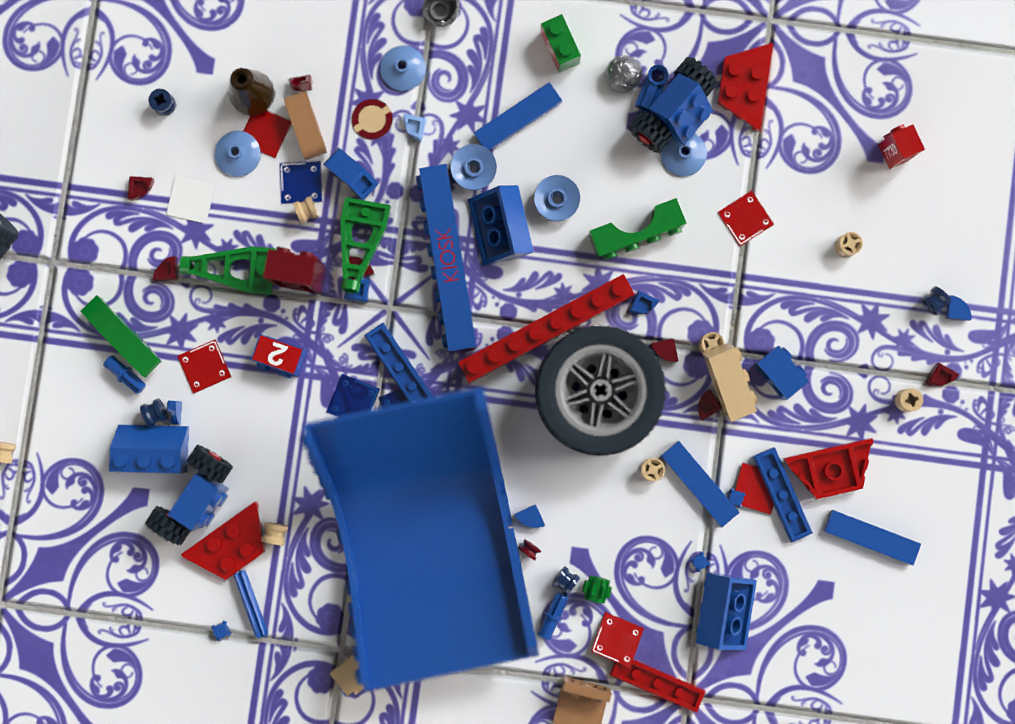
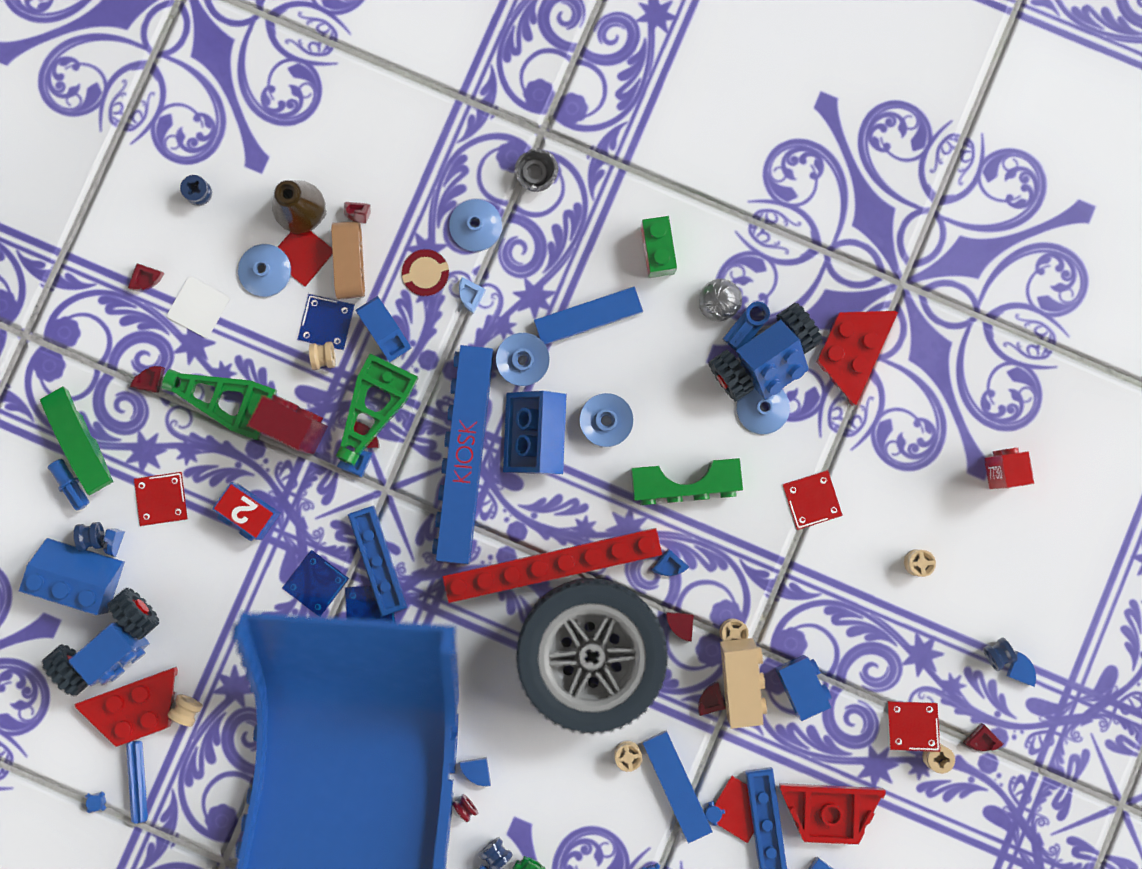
camera: 10 degrees right, 0 degrees up
(881, 379) = (914, 726): none -> red sticker

